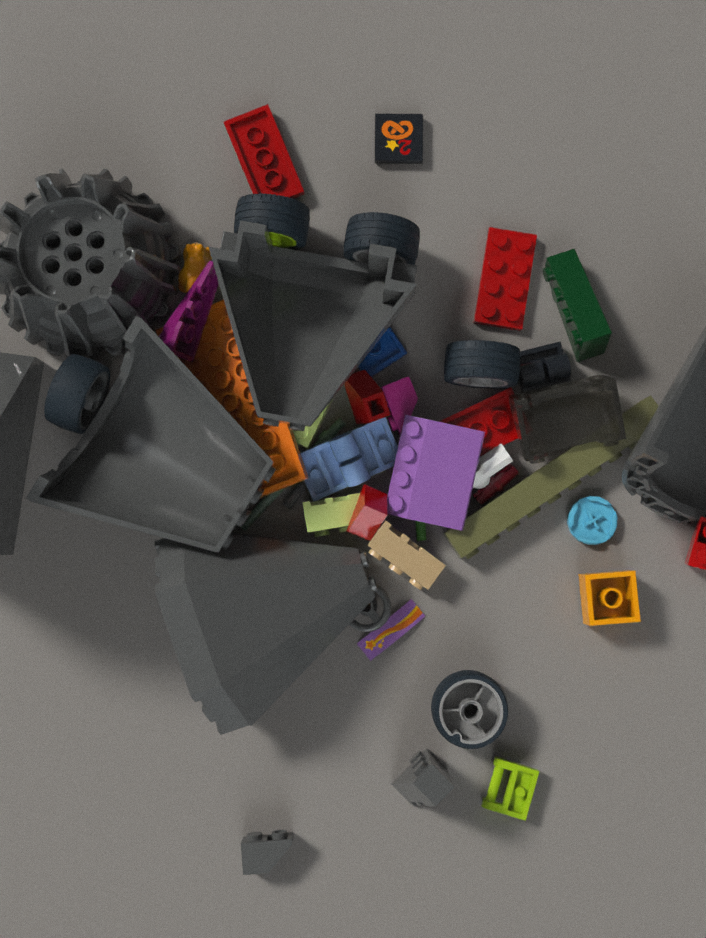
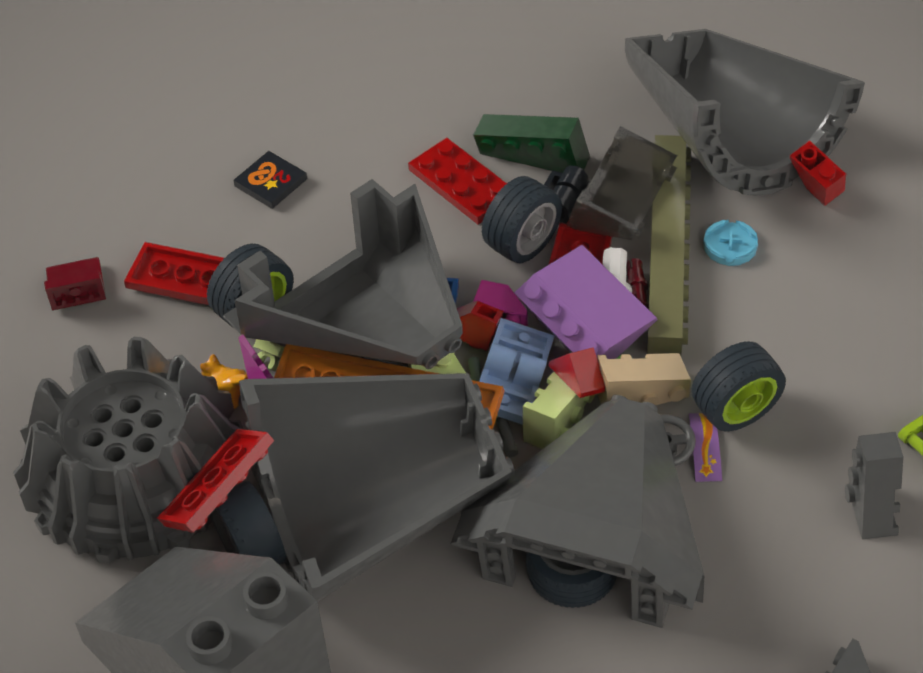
camera: 50 degrees left, 35 degrees down
(72, 356) = (215, 480): none -> red plate
(199, 87) = (74, 283): none -> dark red bracket
(381, 230) = (331, 222): black wheel -> none
(439, 632) = (738, 386): none -> black wheel
(452, 697) = (829, 418): light grey wheel -> none
(609, 597) = (810, 260): light orange brick -> none

